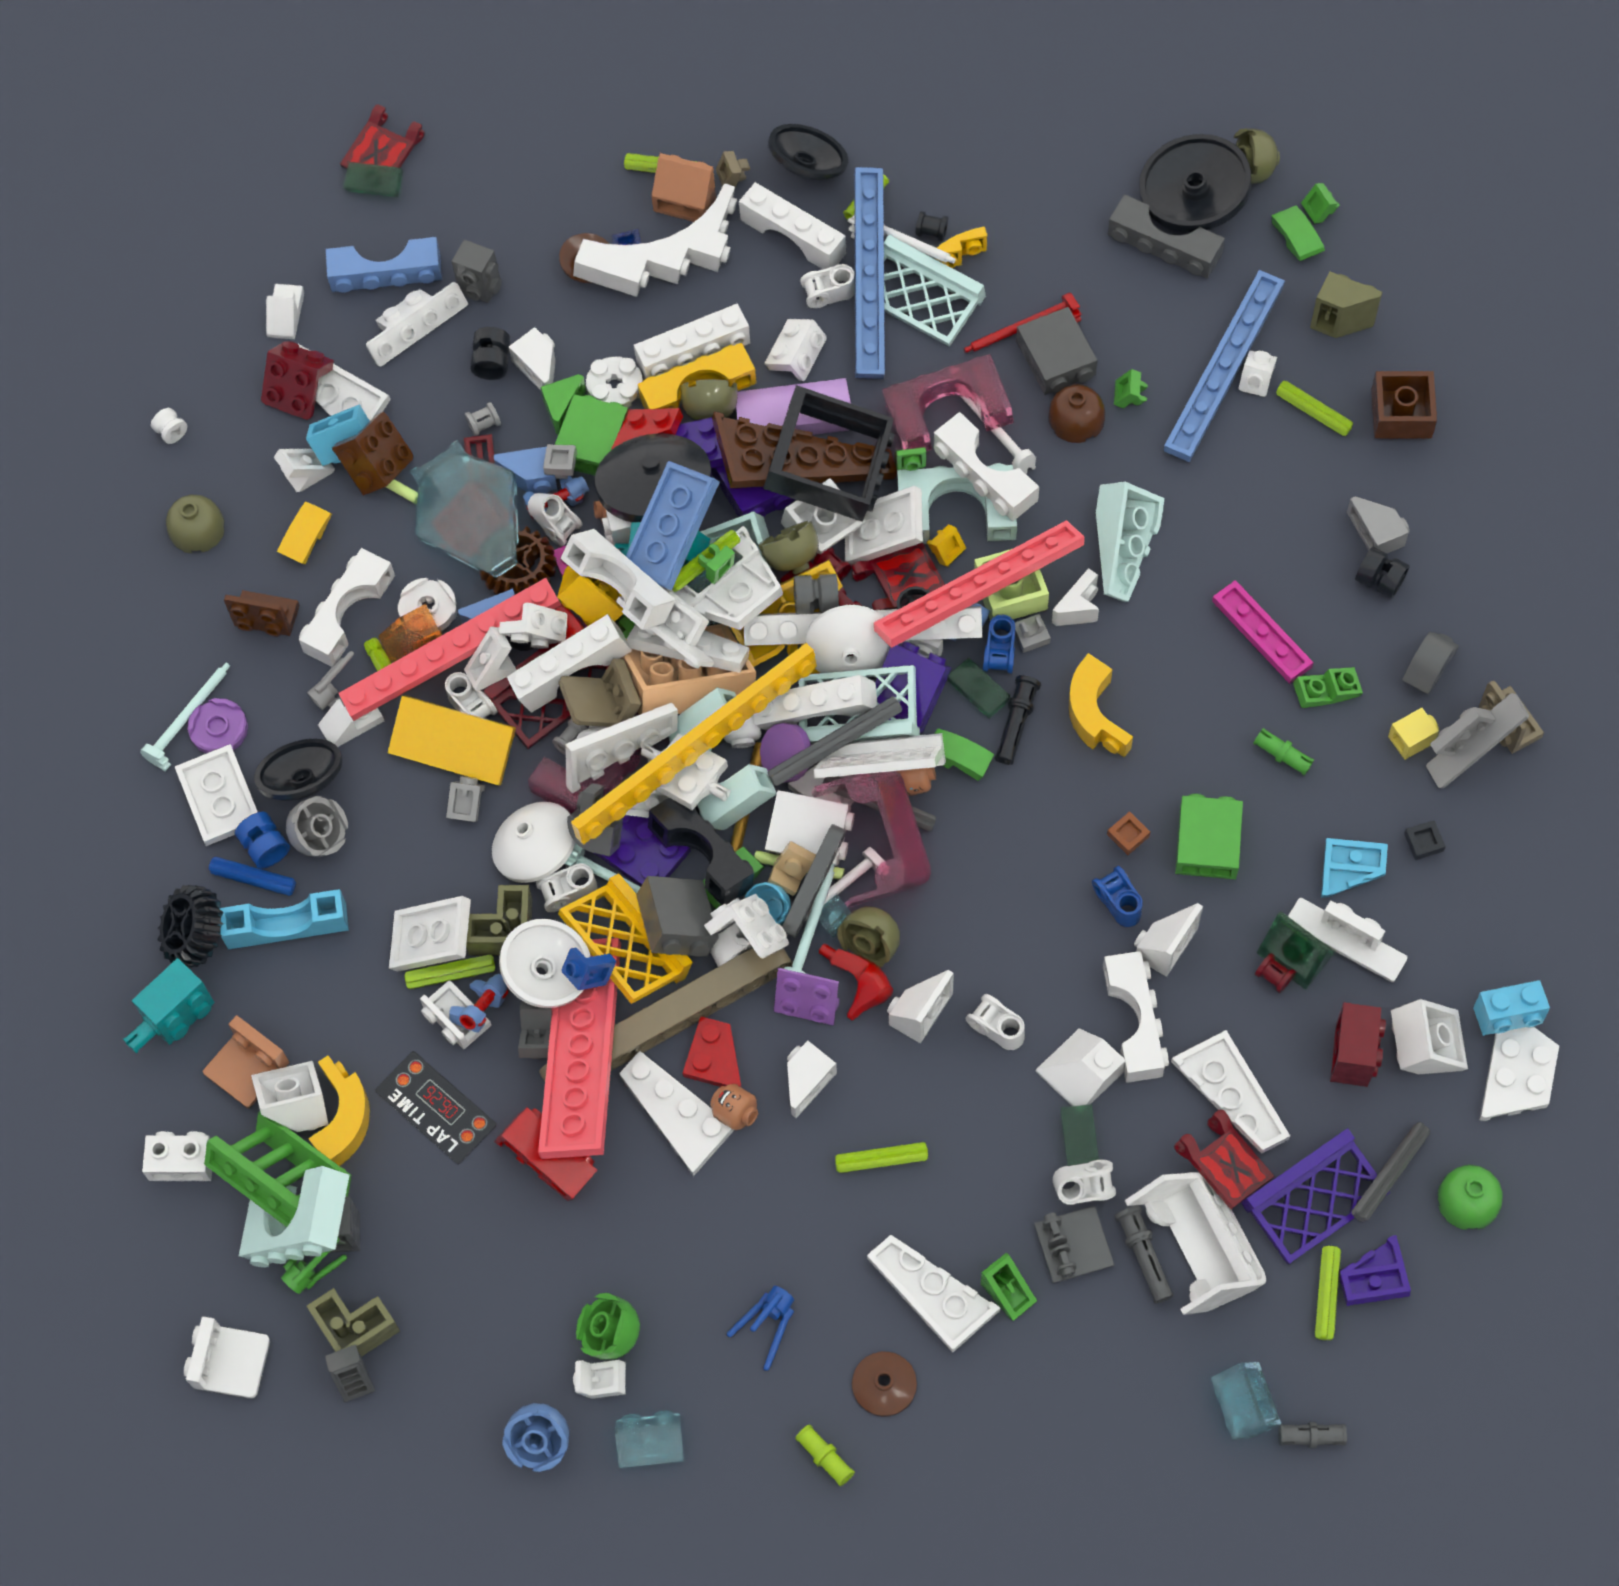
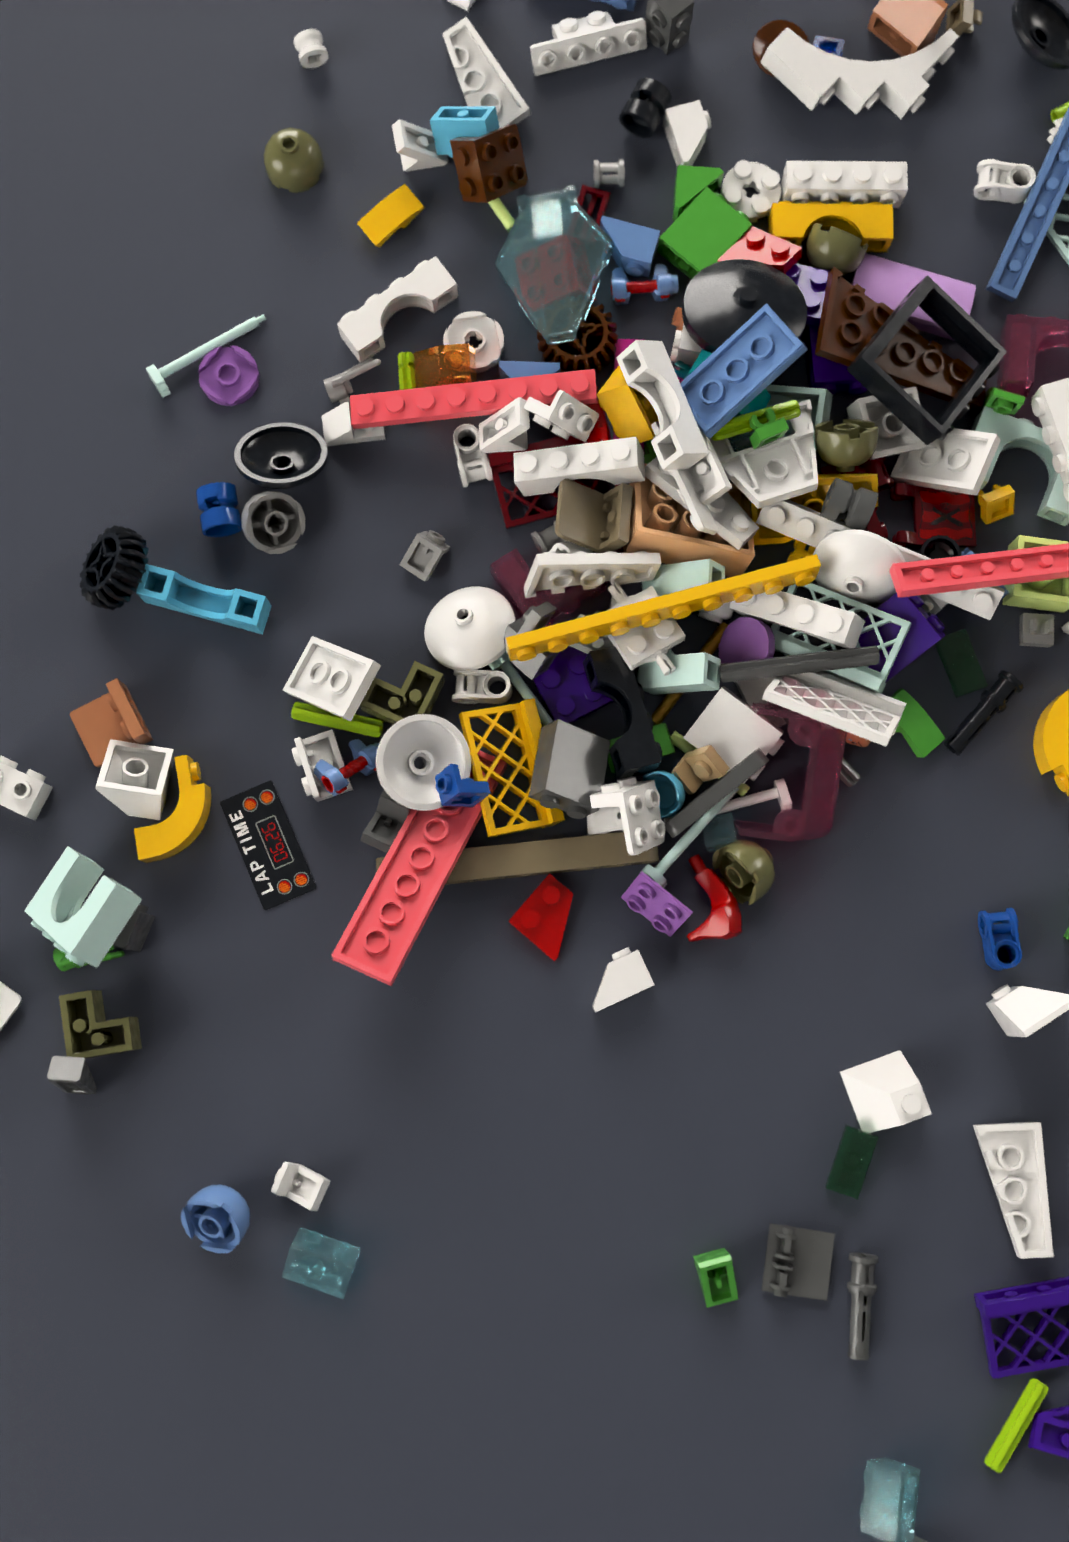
camera: 20 degrees right, 15 degrees up
(169, 1006) = (62, 638): teal brick -> none
(216, 793) = (198, 443): white plate -> none
(250, 1177) = (68, 870): bright green fence -> none
(252, 876) = (197, 540): blue axle -> none
(262, 612) = (318, 279): reddish brown bracket -> none
(293, 378) = (446, 50): dark red bracket -> none
(451, 740) = (437, 489): yellow tile -> none
(557, 520) = (634, 310): white piece -> none
(560, 460) = (662, 250): light grey tile -> none
(563, 1175) = (329, 919): red wedge -> none
(608, 1327) = (327, 1144): bright green cylinder -> none
(675, 1112) = (488, 963): white wing -> none
(734, 1106) = (541, 979): nougat head -> none
(774, 1305) = (494, 1190): blue plant -> none
(796, 348) = (942, 232): white bracket -> none
(816, 239) = (979, 76): white arch -> none
(824, 1455) = (474, 1357): lime pin -> none
(881, 1157) = (656, 1091): lime axle -> none
(884, 1399) = (559, 1292): reddish brown dish -> none
(921, 1005) = (759, 963): white slope -> none
(940, 1300) = (648, 1258): white wing -> none
(993, 1018) = (824, 1008): white piece -> none
(1000, 649) = (998, 635): blue piece -> none
(1087, 1182) = (833, 1210): white piece -> none
(1127, 980) = (971, 1029): white arch -> none
(1128, 833) = (1039, 881): dark orange tile -> none
(1207, 1237) = (928, 1327): white windscreen -> none
(1227, 1162) = (981, 1254): dark red flag -> none

